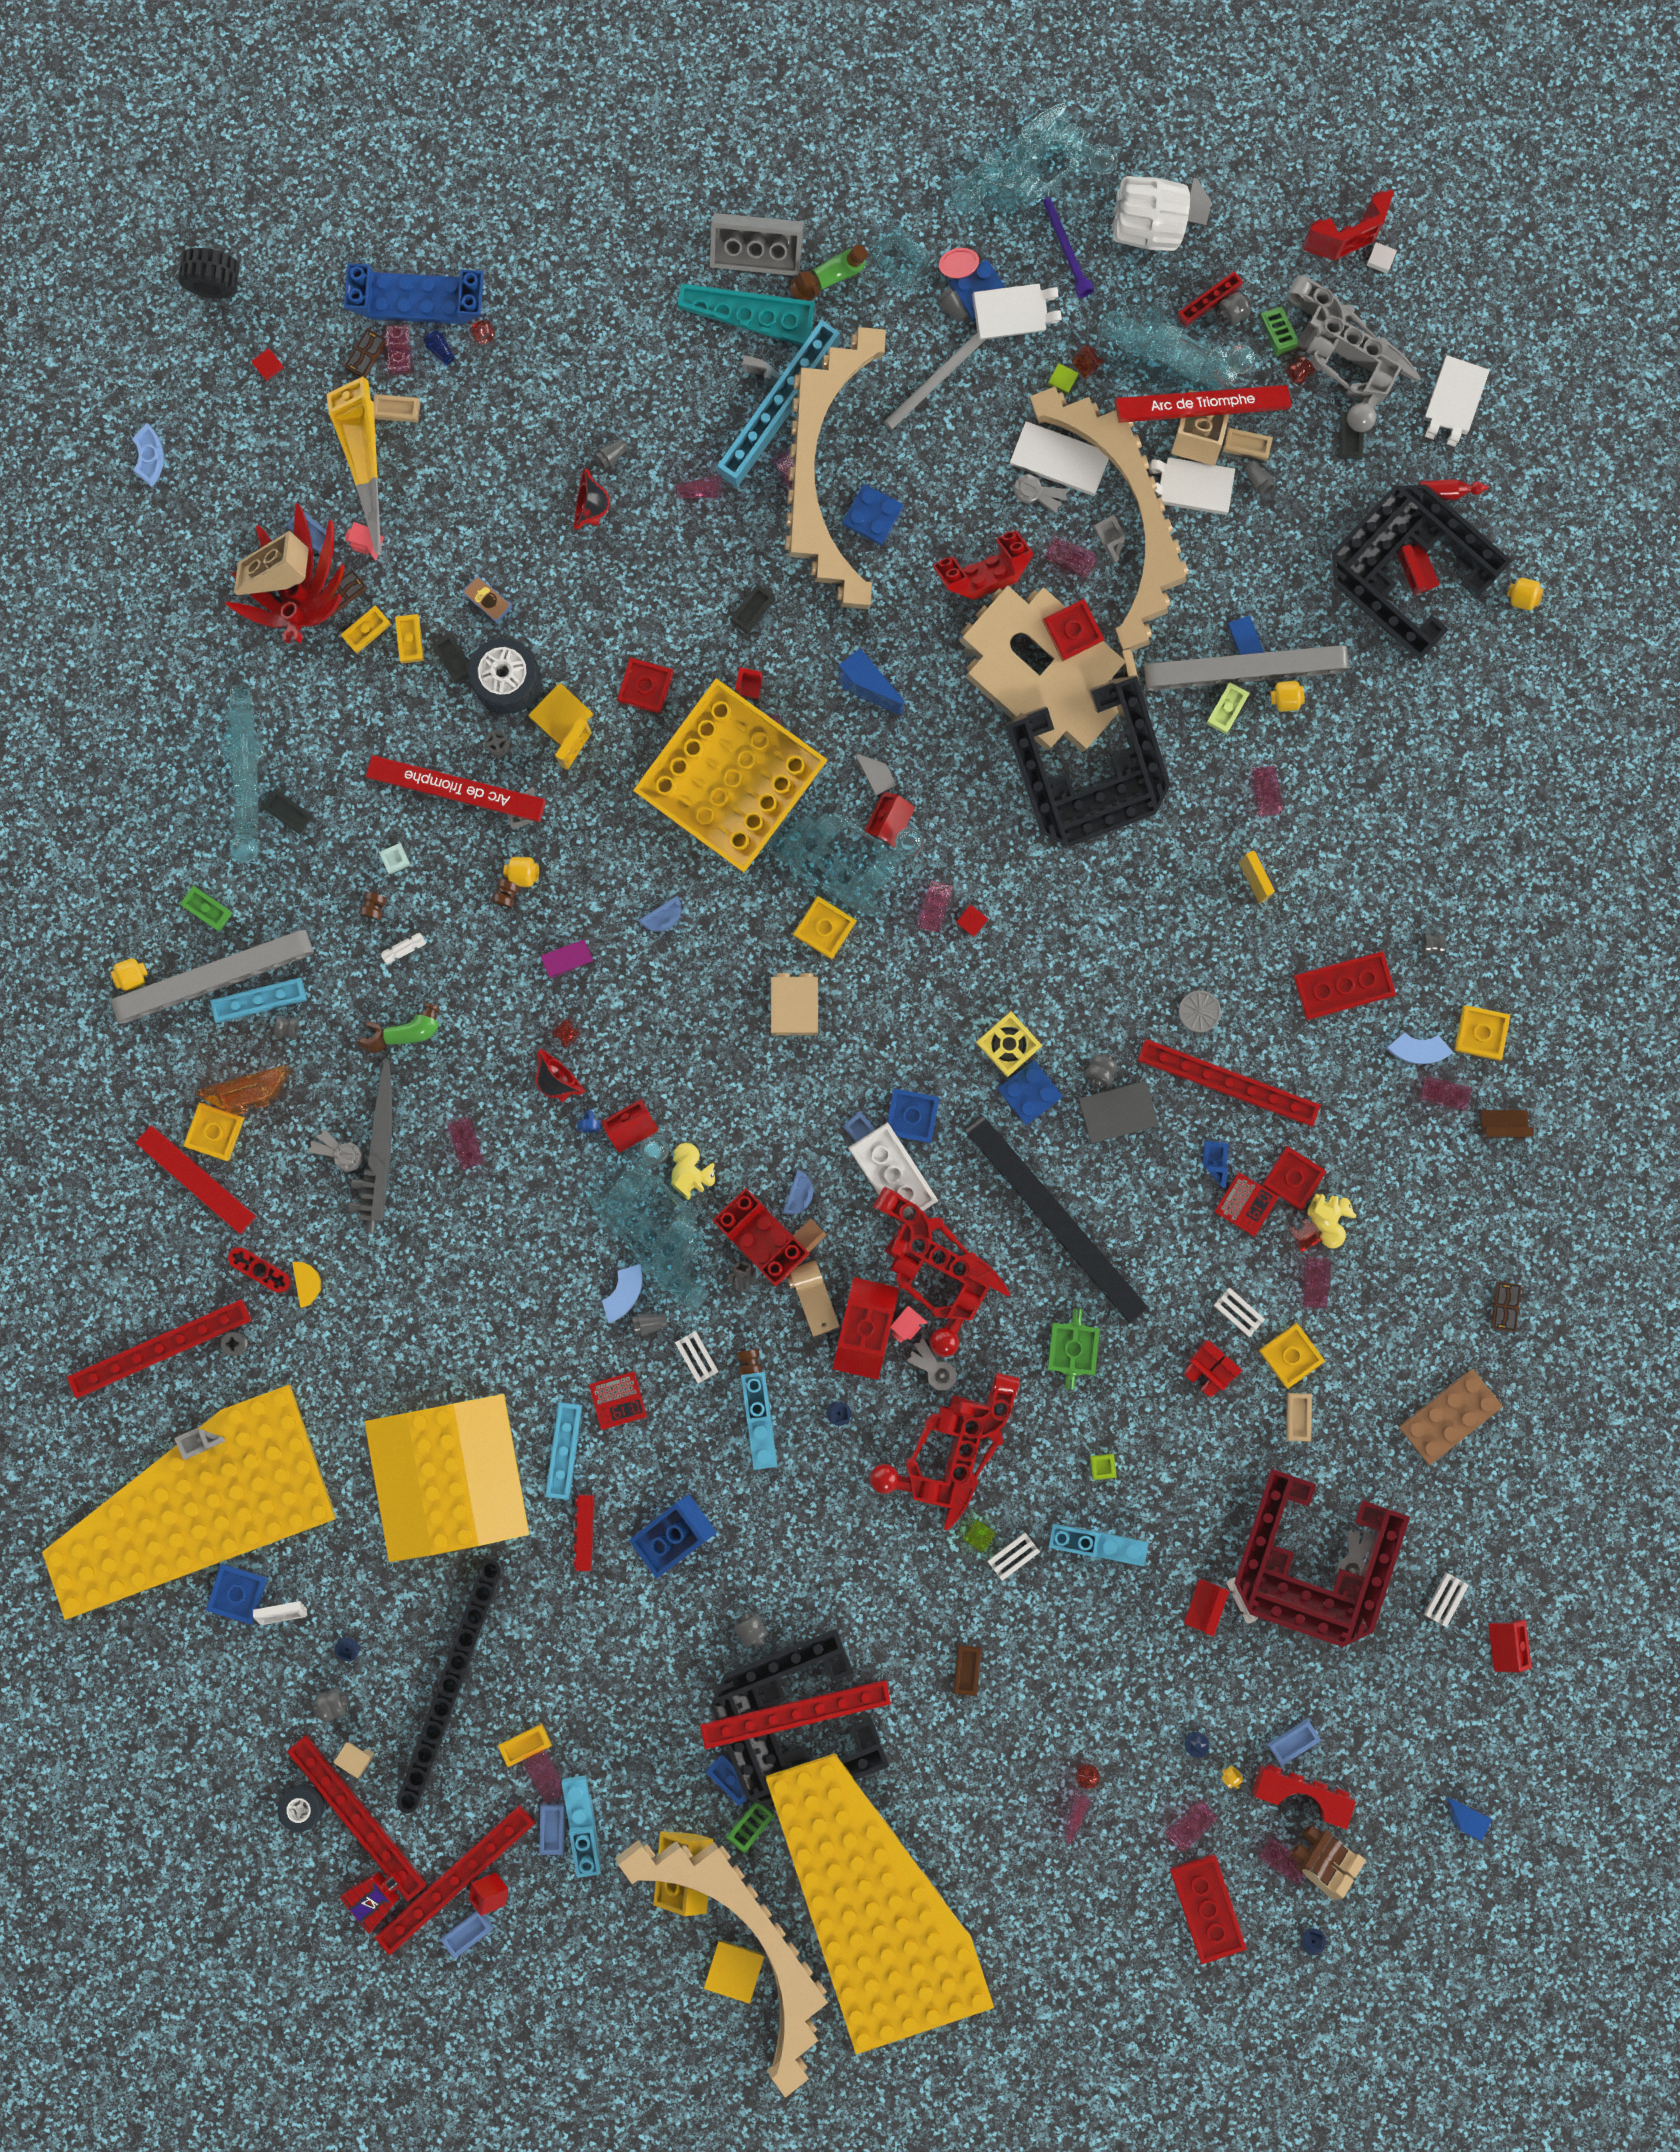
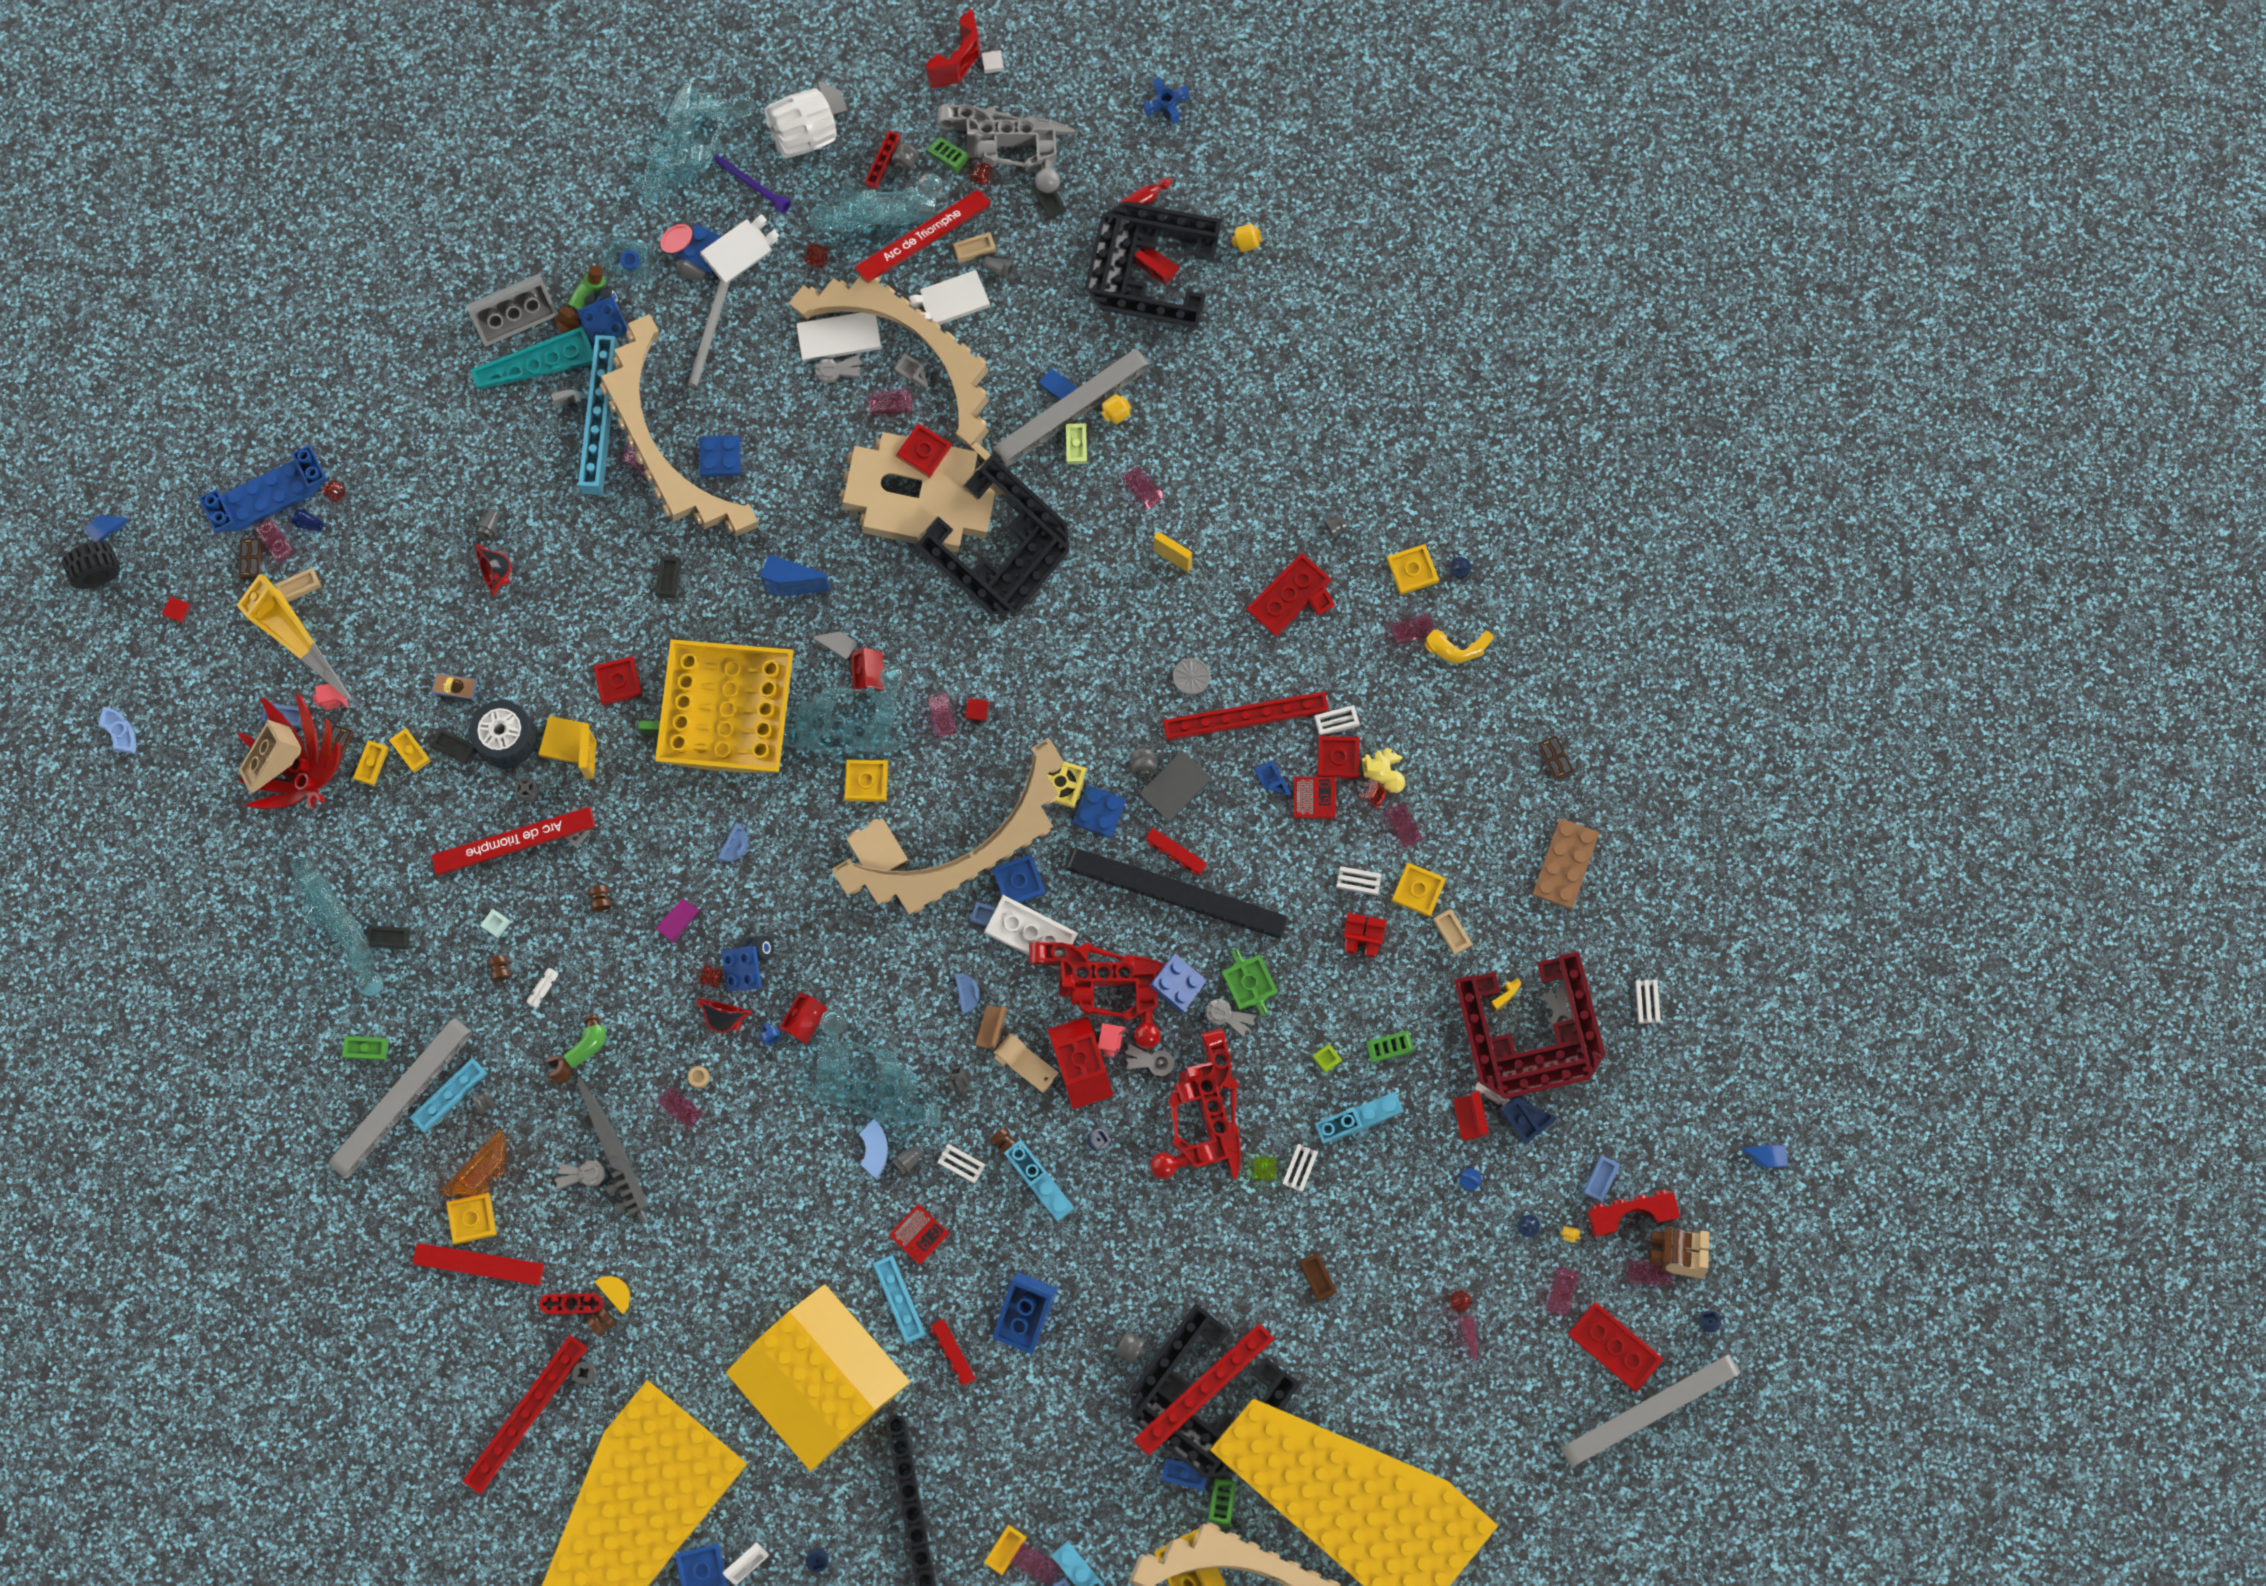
camera: 30 degrees left, 10 degrees down
(128, 974) = (331, 1135): yellow head -> none
(196, 1442) = (599, 1467): light grey slope -> none
(243, 238) = (103, 526): none -> blue slope
(276, 1305) = (597, 1325): none -> reddish brown wheel
(499, 1123) = (698, 1077): none -> tan tile
(521, 871) = (603, 873): yellow head -> none
(602, 1039) = (742, 965): none -> blue plate
(647, 751) = (649, 727): none -> bright green tile
(686, 1175) = (870, 1028): light yellow animal -> none
(702, 488) = (576, 509): clear pink slope -> none
(749, 683) = (698, 630): red panel -> none
(760, 1237) = (955, 1040): red slope -> none
(823, 1069) = (926, 885): none -> tan arch
(840, 301) = (603, 315): none -> blue plate
(900, 259) = (630, 260): none -> blue tile
(990, 574) = (837, 445): red slope -> none
(1004, 1309) = (1177, 983): none -> plate
(1027, 1360) = (1219, 1012): none -> light grey piece
(1063, 379) = (806, 277): lime tile -> none
(1079, 1178) = (1175, 852): none -> red piece
(1168, 1666) = (1470, 1179): none -> blue tile
(1187, 1506) = (1392, 1054): none -> bright green slope
(1200, 437) = (936, 262): tan slope -> none
(1204, 1990) = (1650, 1410): none -> light grey beam
(1257, 1643) = (1525, 1119): none -> dark blue wing
(1294, 1135) = (1320, 726): none -> white tile
(1321, 1508) = (1510, 989): none -> yellow slope
(1371, 1012) = (1320, 601): none -> red tile
(1419, 1051) = (1375, 609): light blue tile -> none
(1455, 398) = (1109, 130): white tile -> none
(1461, 1125) = (1439, 645): none -> yellow piece
(1505, 1124) = (1471, 625): reddish brown panel -> none
(1510, 1646) = (1716, 1007): red panel -> none
(1530, 1059) = (1460, 567): none -> dark blue tile
(1534, 392) = (1166, 107): none -> blue pin

